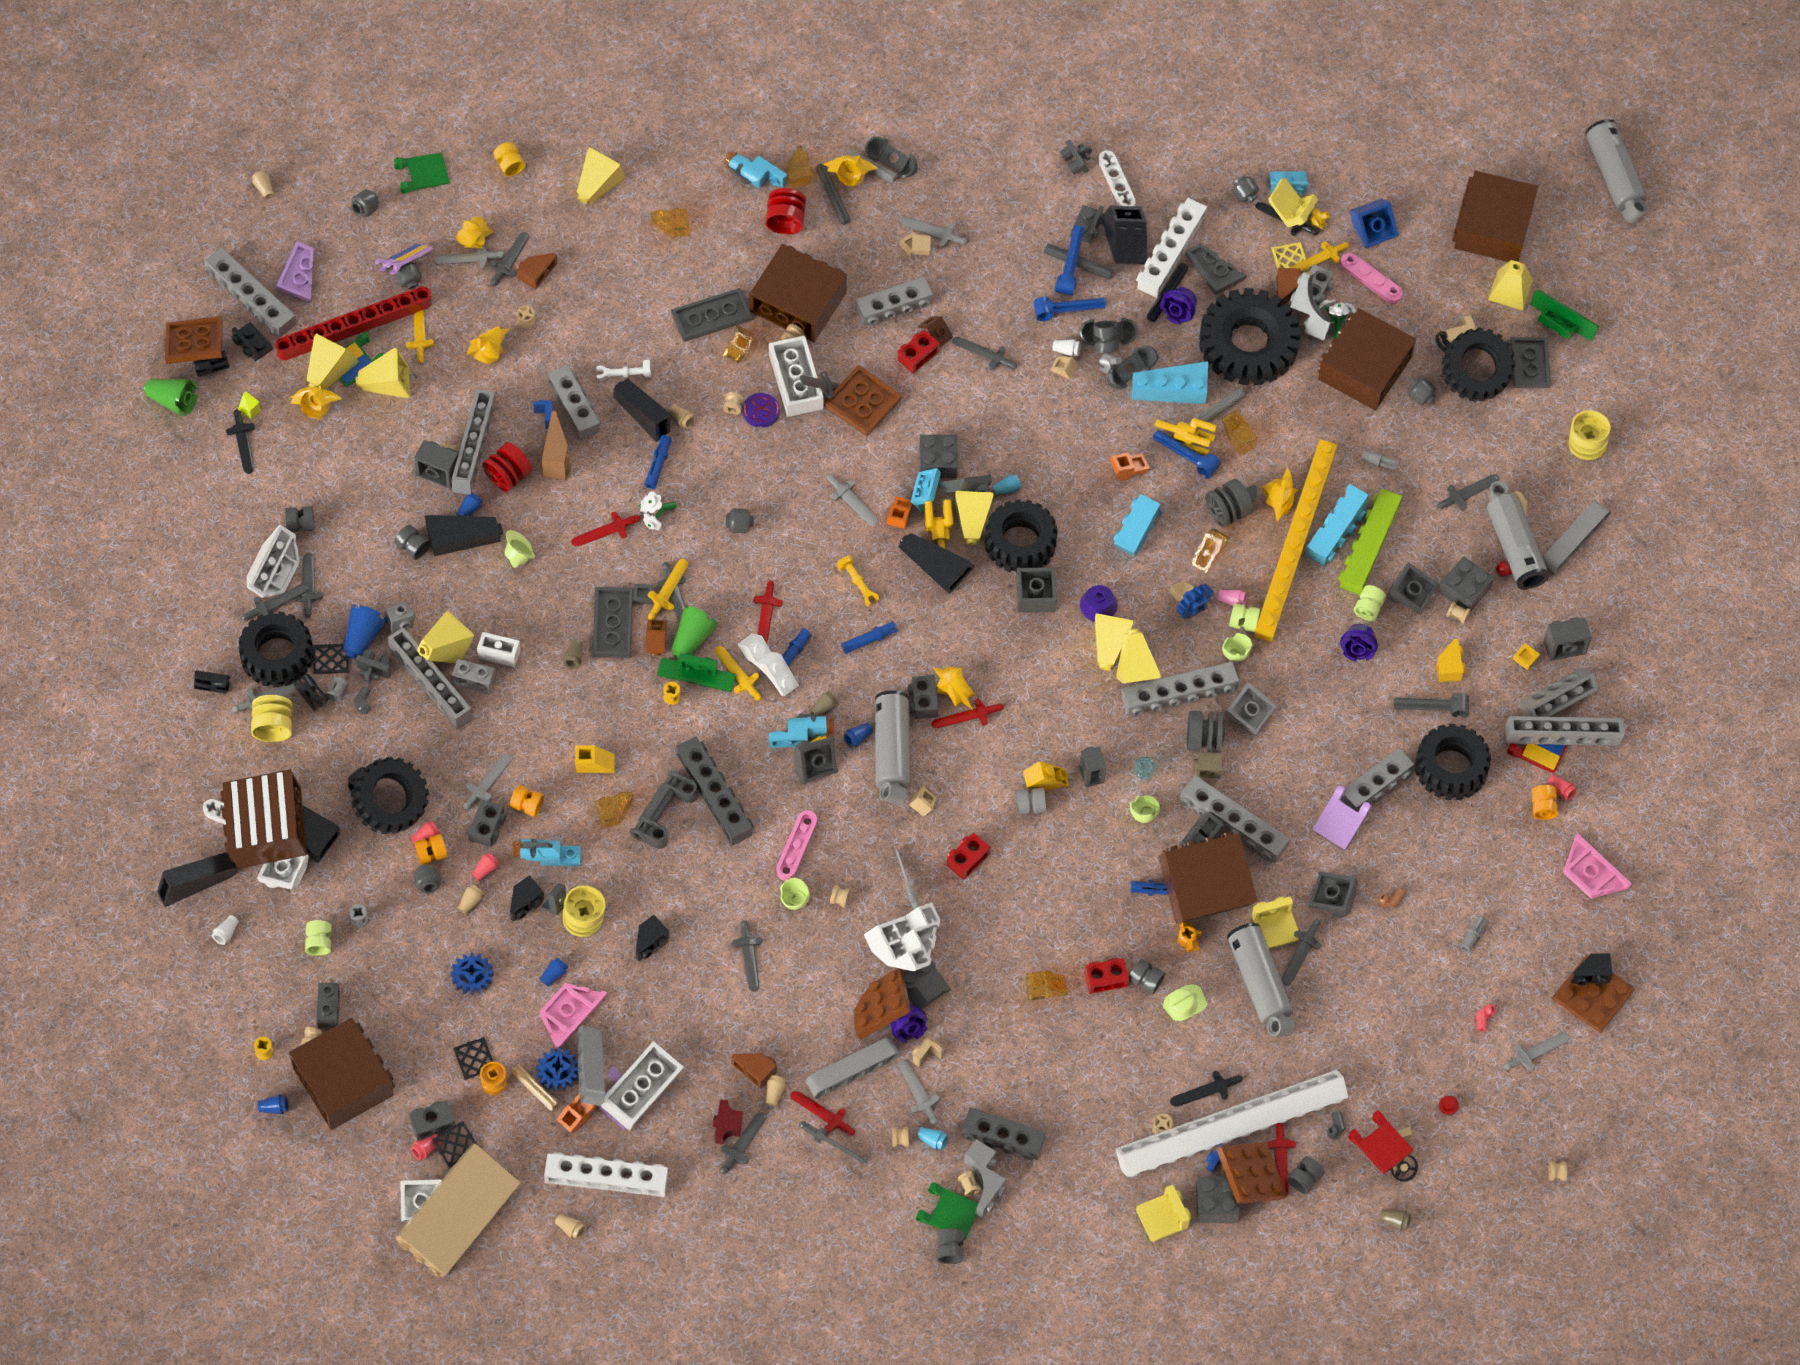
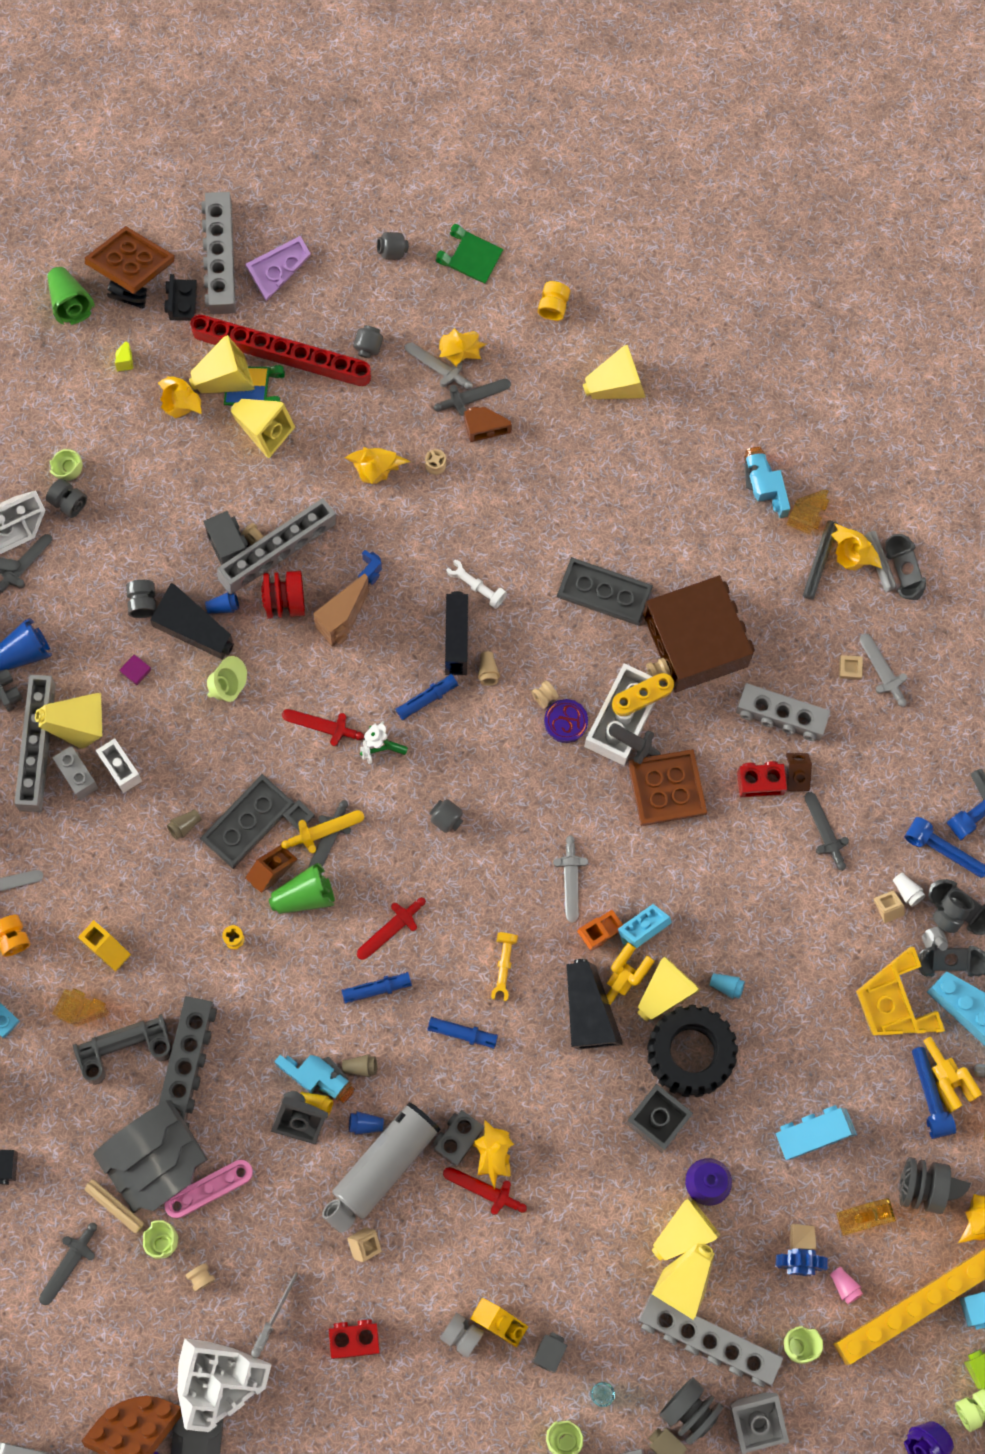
camera: 40 degrees right, 10 degrees up
(241, 430) = (97, 374): black sword -> none
(262, 183) = (323, 161): tan cone -> none
(278, 499) = (67, 460): none -> yellowish green hair
(399, 616) = (63, 662): light grey brick -> none
(403, 257) = (377, 322): flag -> none
(419, 342) = (323, 414): yellow sword -> none
(449, 589) = (135, 669): none -> magenta tile
(582, 426) = (407, 546): light grey brick -> none
(672, 222) = (647, 474): clear yellow slope -> none
(696, 671) = (276, 938): green bracket -> none
(738, 344) = (602, 639): clear yellow slope -> none
(744, 681) = (312, 979): yellow sword -> none
(745, 852) = (151, 1158): none -> dark grey slope
(746, 901) = (114, 1206): none -> tan axle
(771, 663) = (344, 982): white arch -> none
(785, 211) = (757, 544): red wheel -> none
(799, 357) = (636, 701): none -> yellow plate
(920, 244) = (857, 675): tan tile -> none
(939, 453) = (687, 901): dark grey brick -> none
(973, 484) = (685, 956): dark grey slope -> none
(1115, 421) = (887, 1003): none -> yellow wing
(1127, 465) = (863, 1062): orange brick -> none
(1244, 617) = (838, 1319): yellowish green wheel -> none

